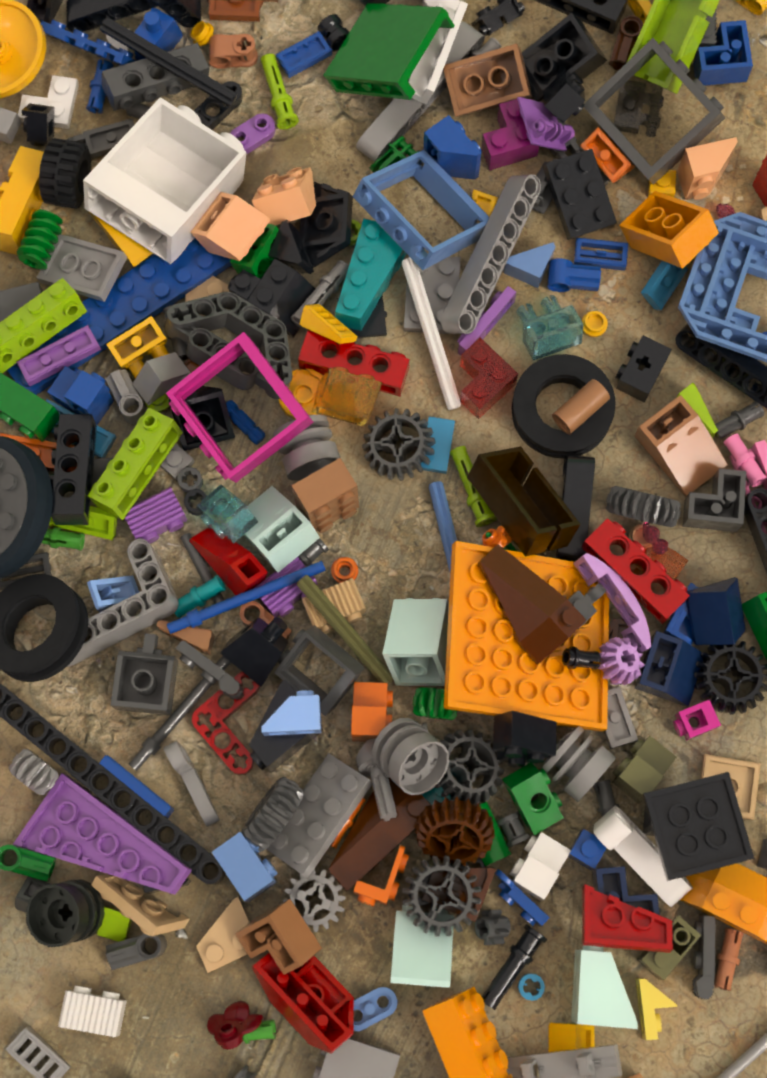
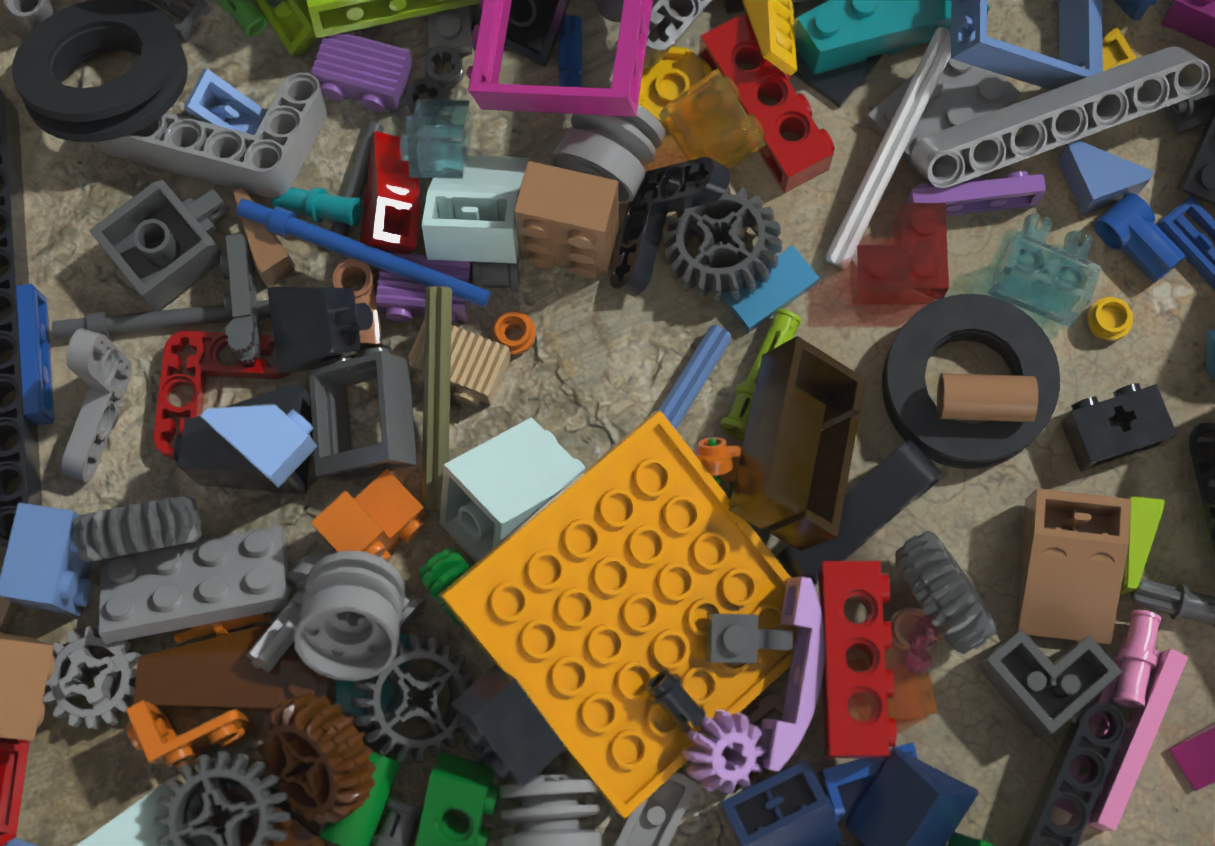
camera: 45 degrees right, 0 degrees up
(353, 457) = (661, 192): none -> black beam
(534, 608) = (674, 579): reddish brown wedge -> none

